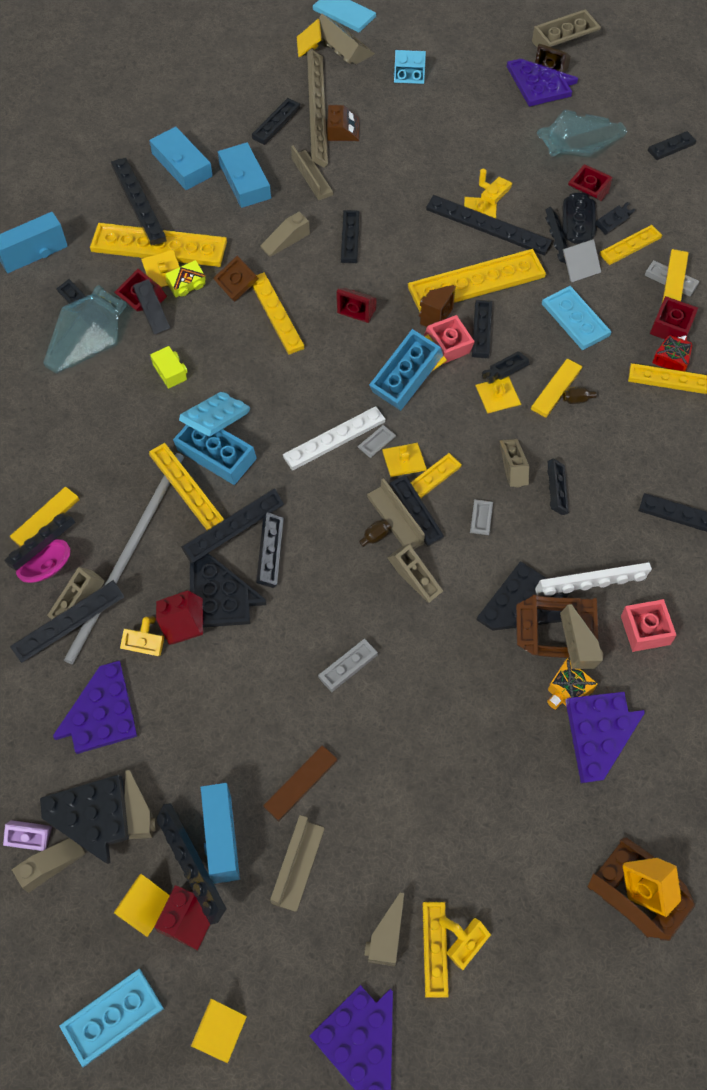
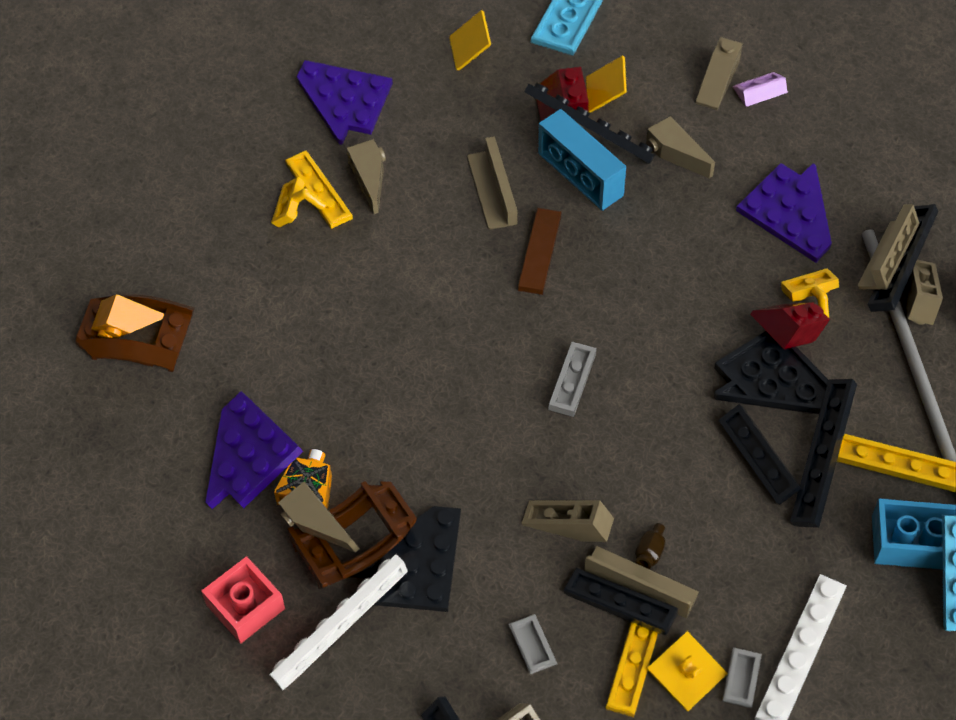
camera: 150 degrees right, 5 degrees down
(75, 627) = (890, 250): none -> dark tan panel
(90, 815) = (715, 119): black wing -> none

